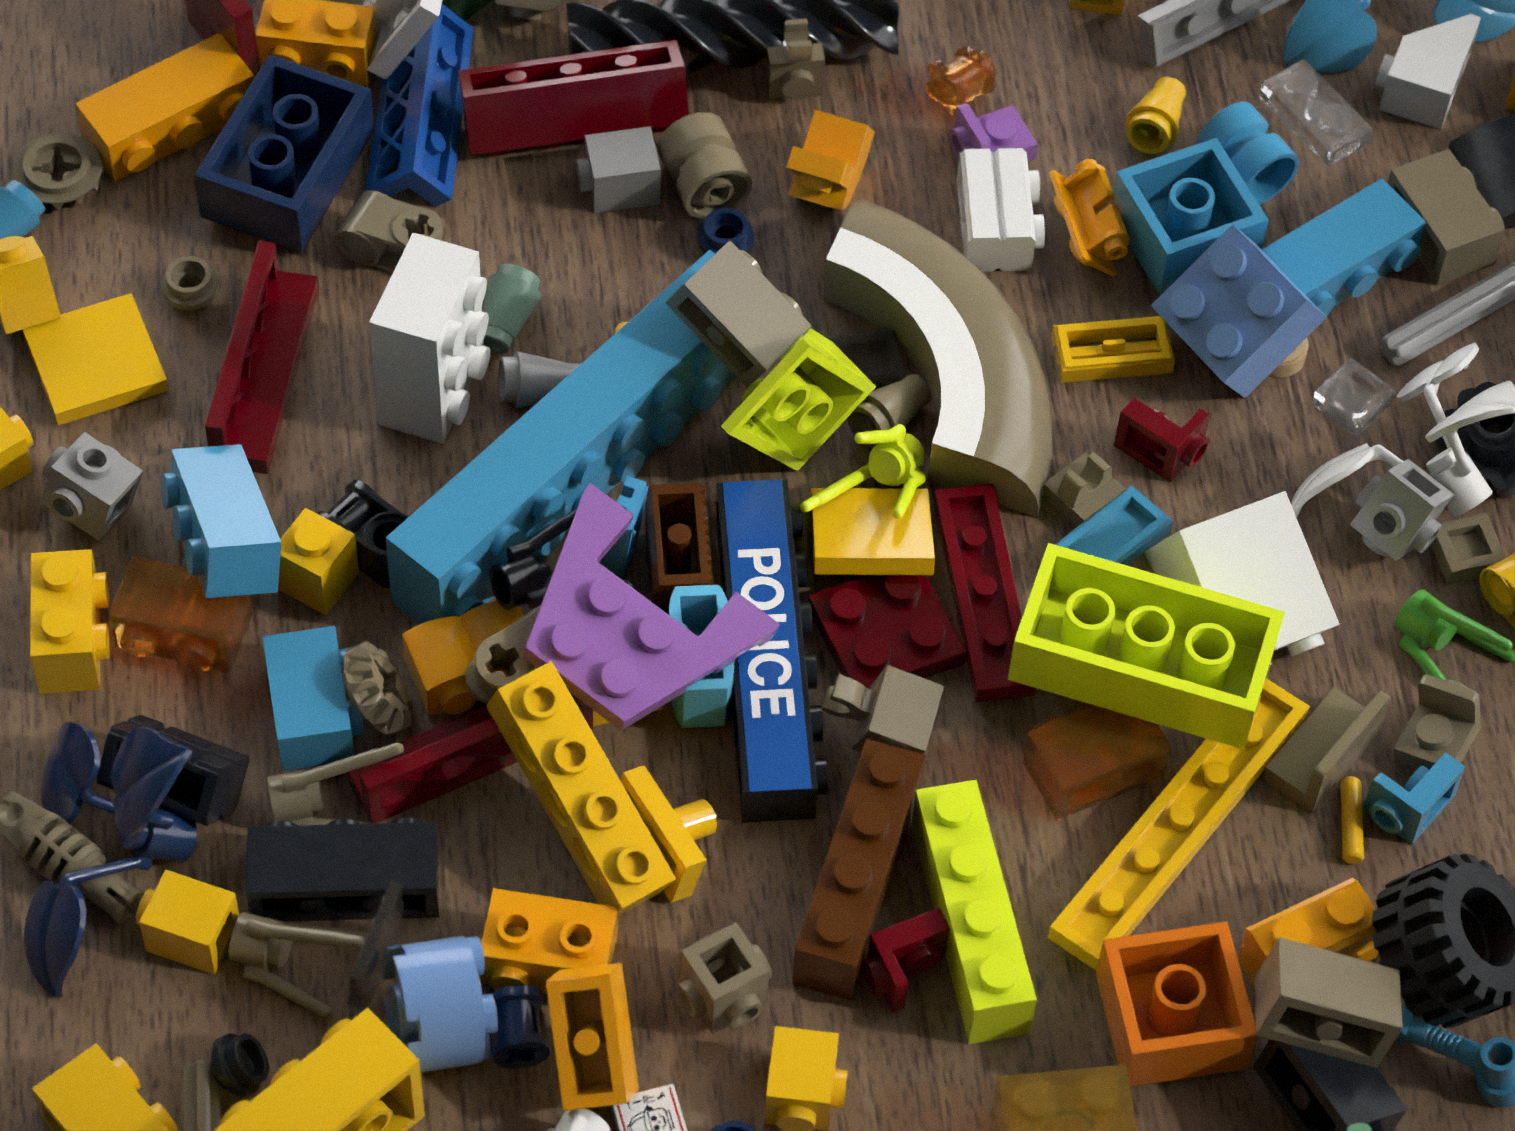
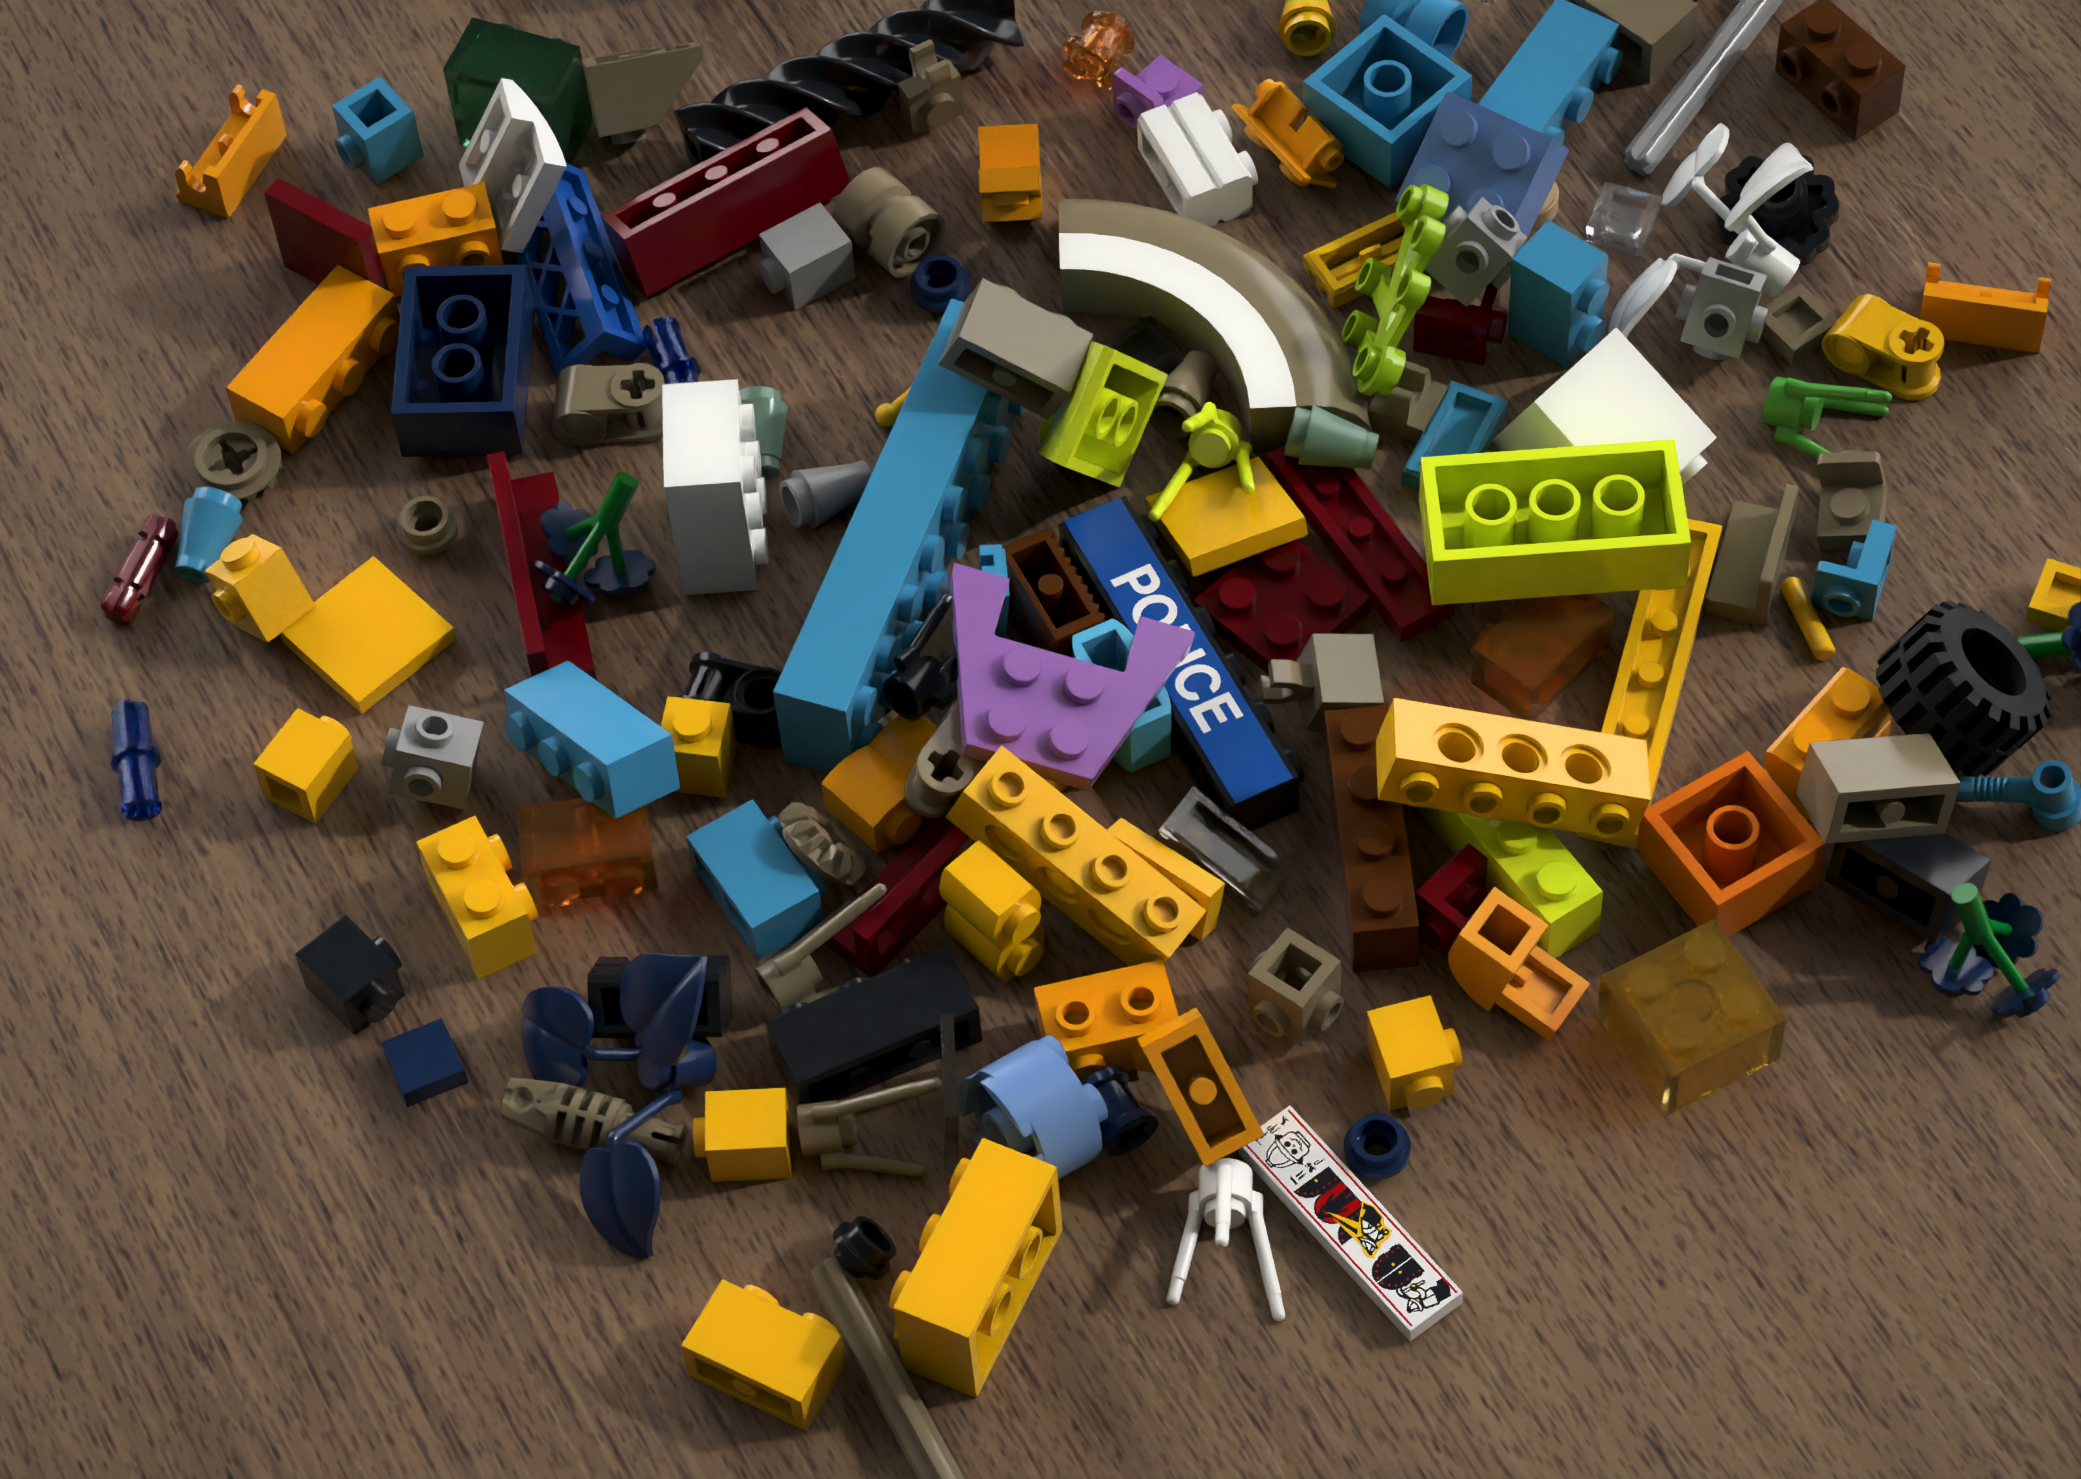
camera: 15 degrees left, 0 degrees up
(302, 341) = (576, 538): none -> dark blue plant
(464, 218) = (670, 351): none -> clear blue axle
(490, 806) = (993, 912): none -> yellow brick
(723, 831) = (1226, 850): none -> clear smoke tile
(921, 1032) = (1501, 964): none -> light orange brick
(989, 497) = (1329, 441): none -> sand green cone
(1000, 857) = (1512, 769): none -> yellow brick
(1111, 386) = (1398, 298): none -> lime plant
(1195, 376) = (1476, 250): none -> light grey brick
(1256, 440) = (1558, 294): none -> dark azure brick

